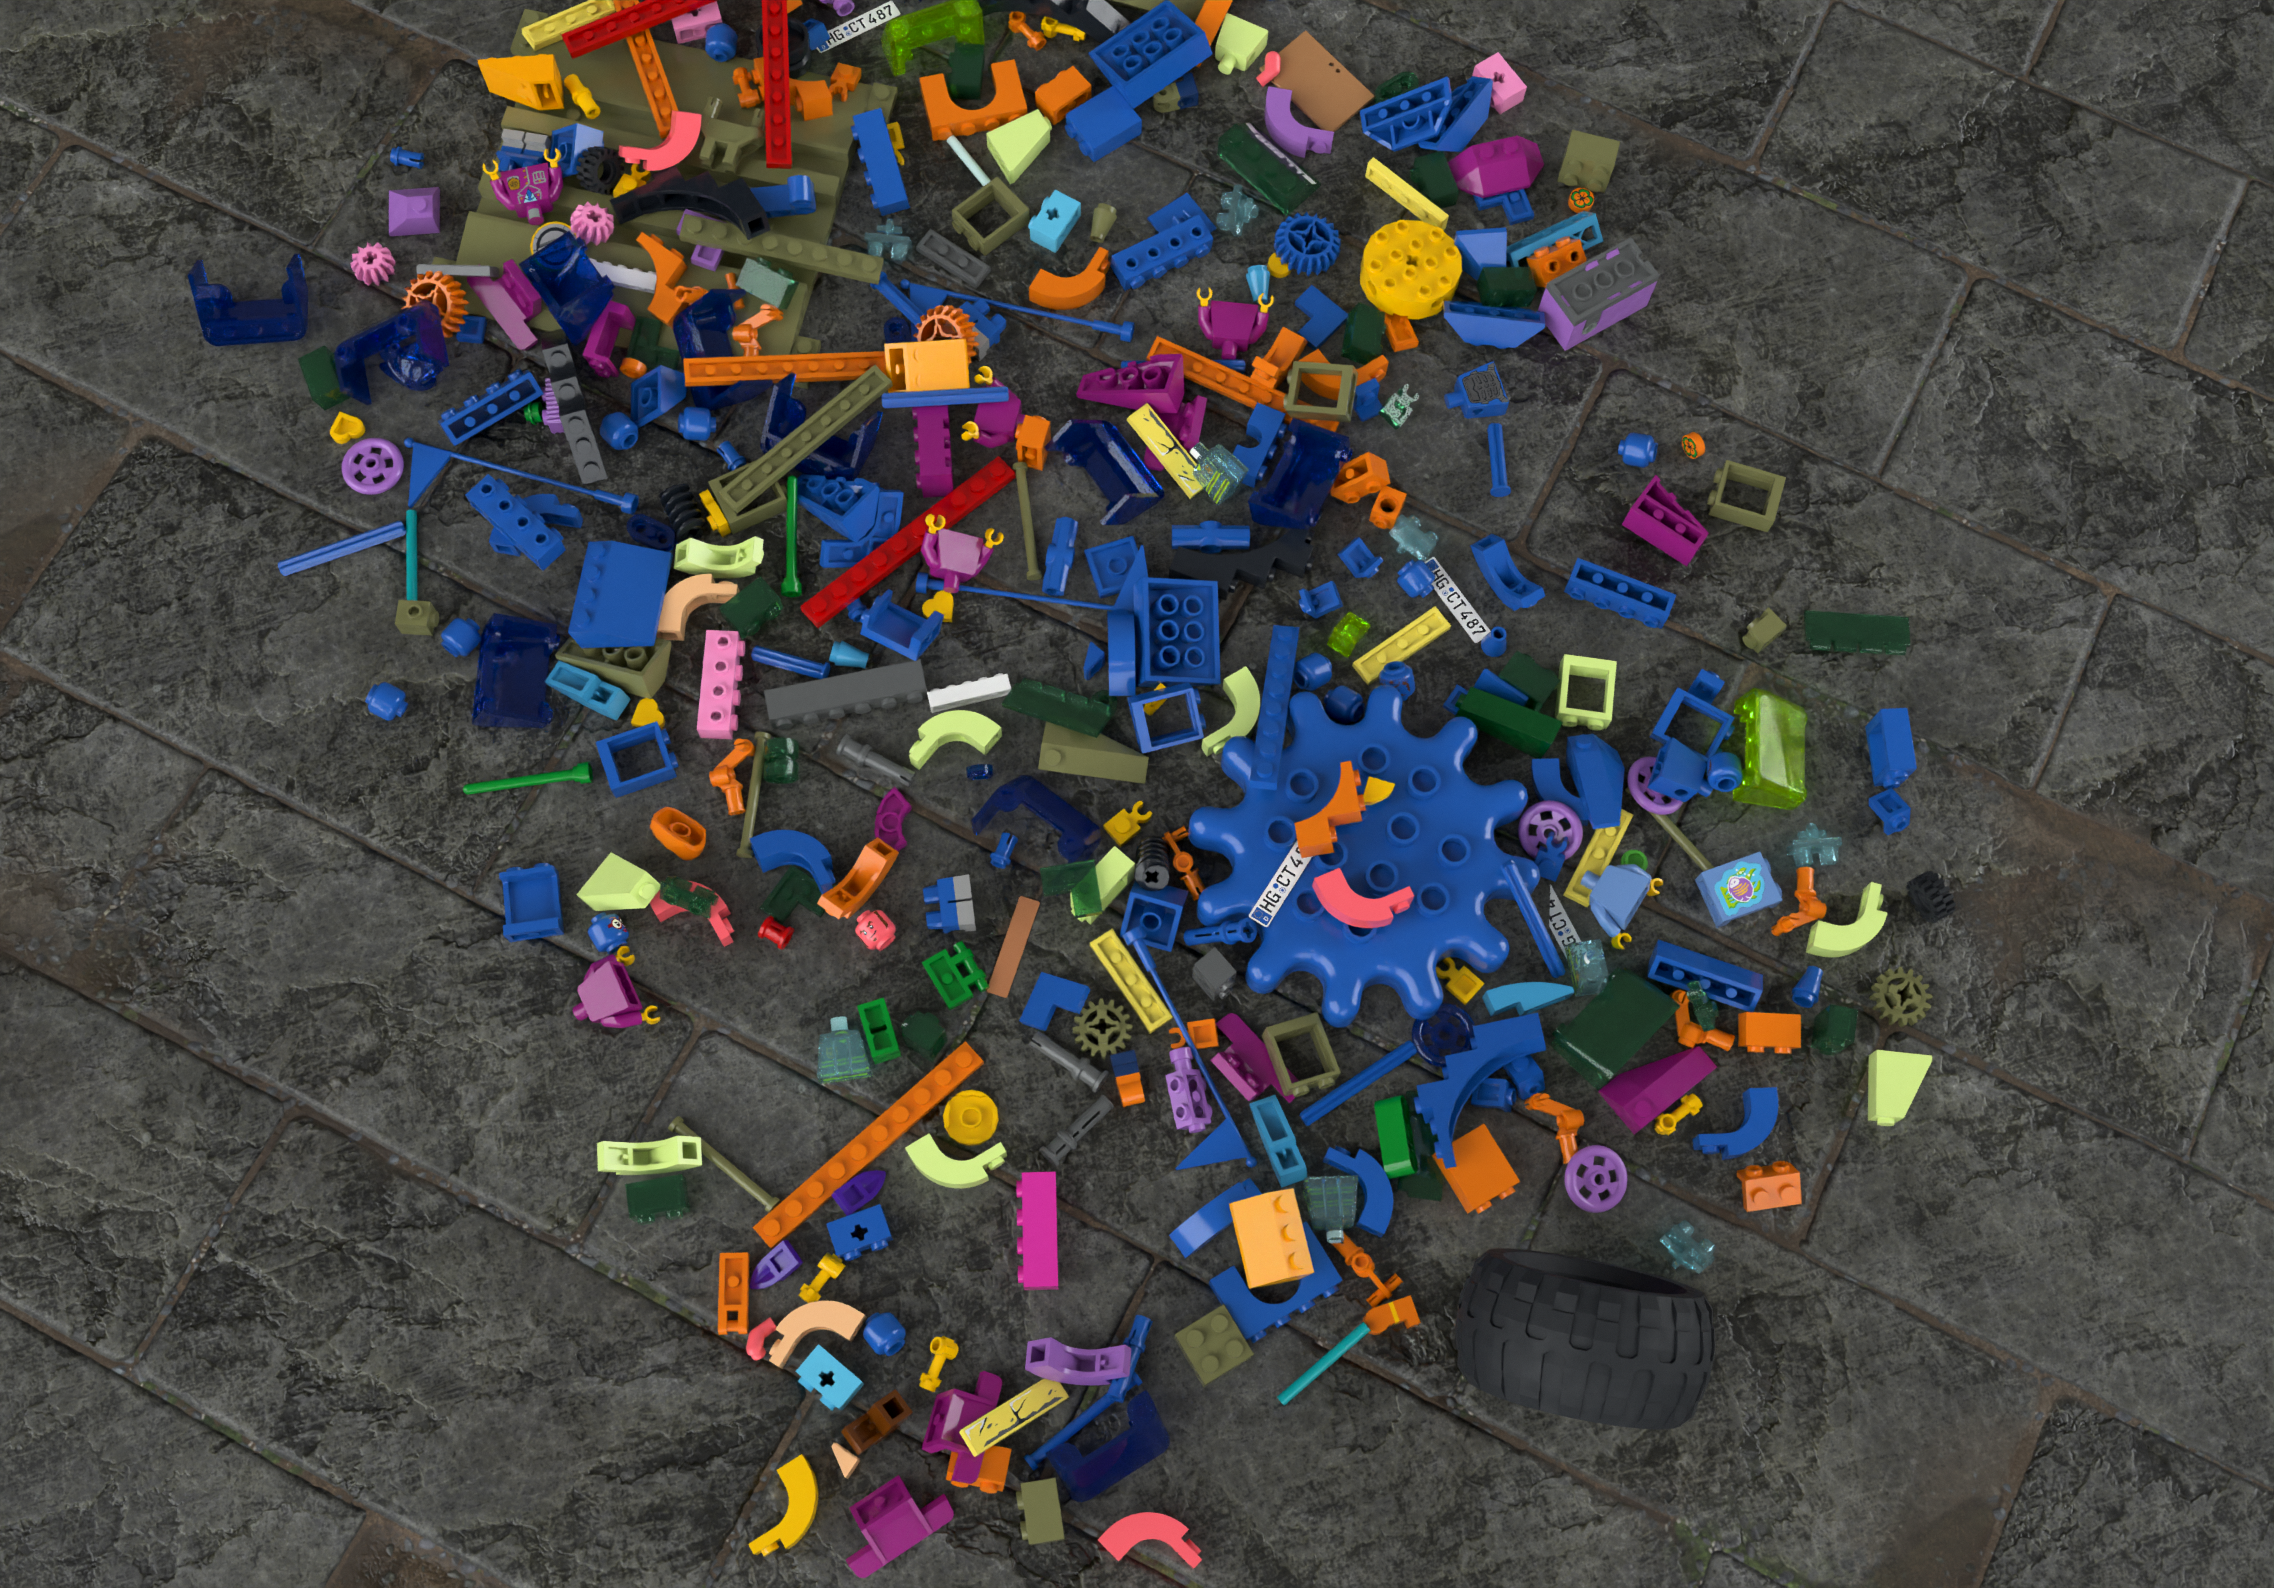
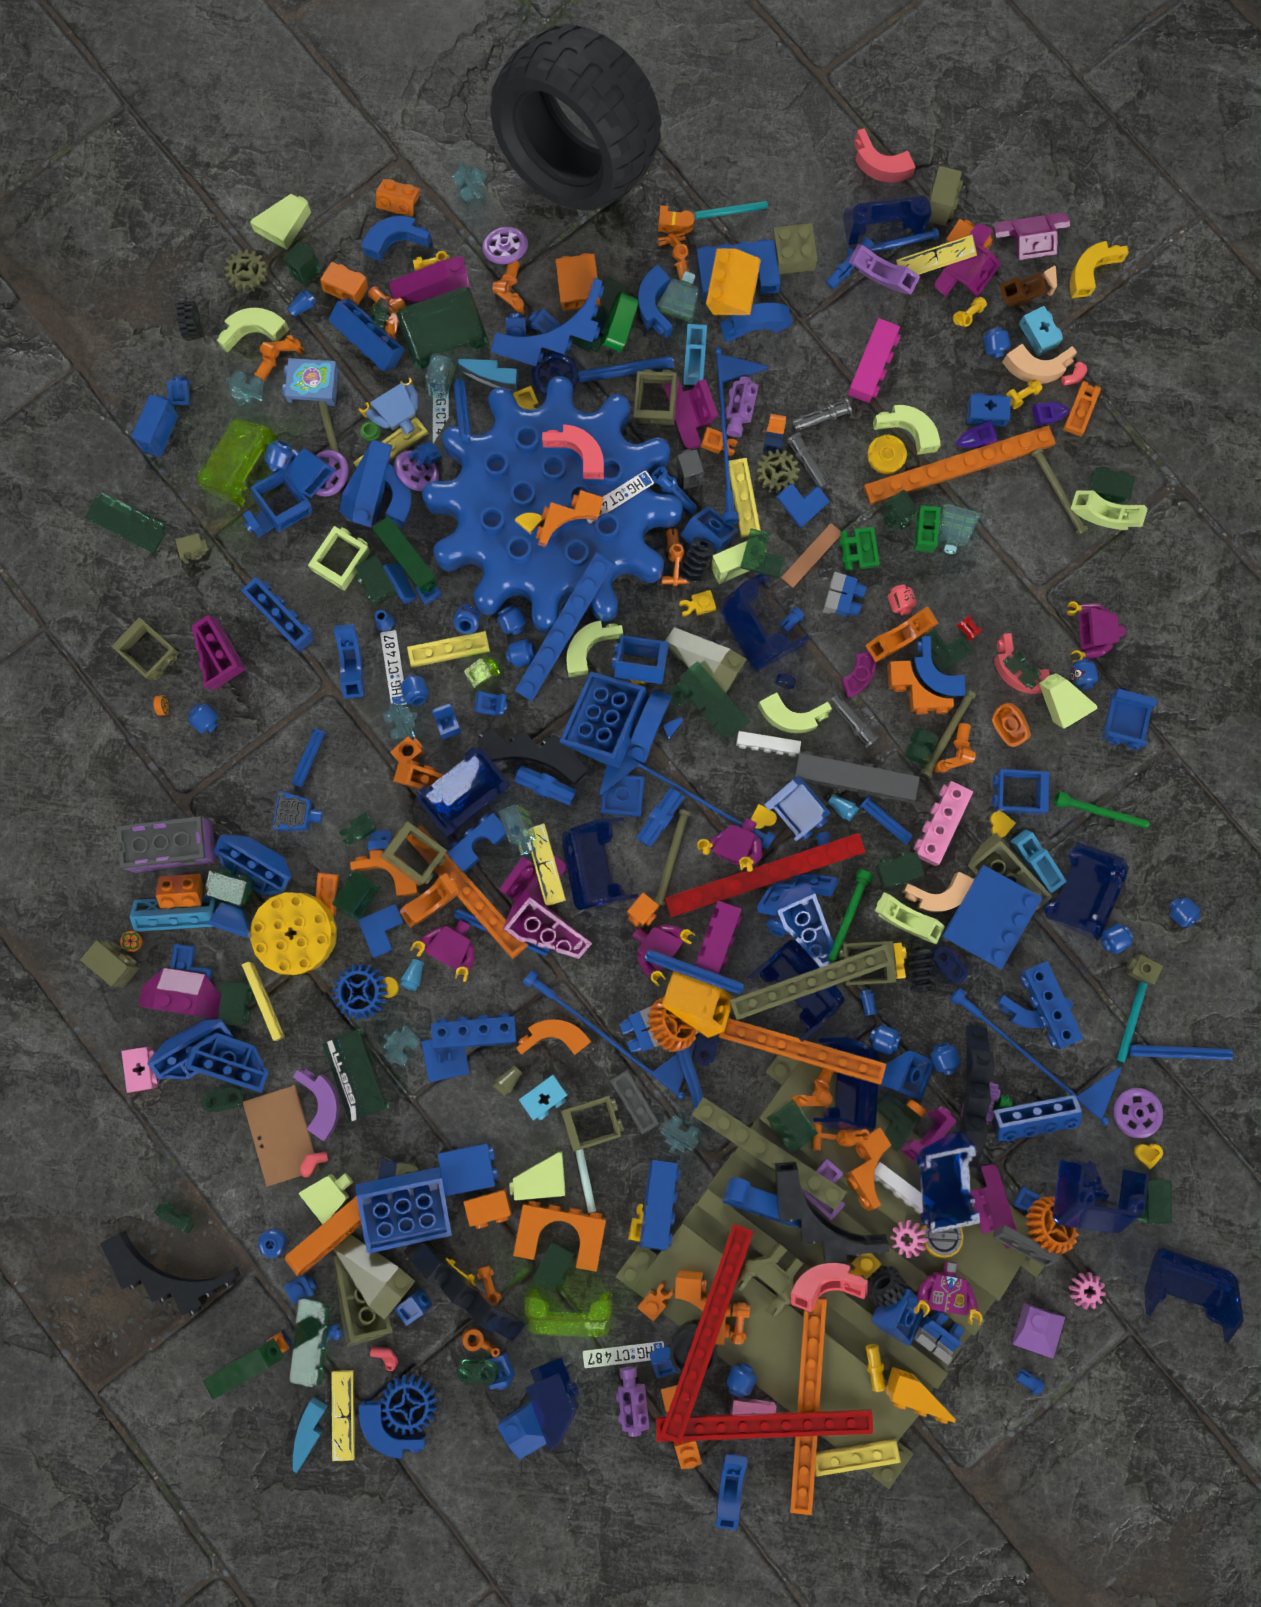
camera: 155 degrees left, 10 degrees up
(801, 817) = (921, 701): none -> orange arch

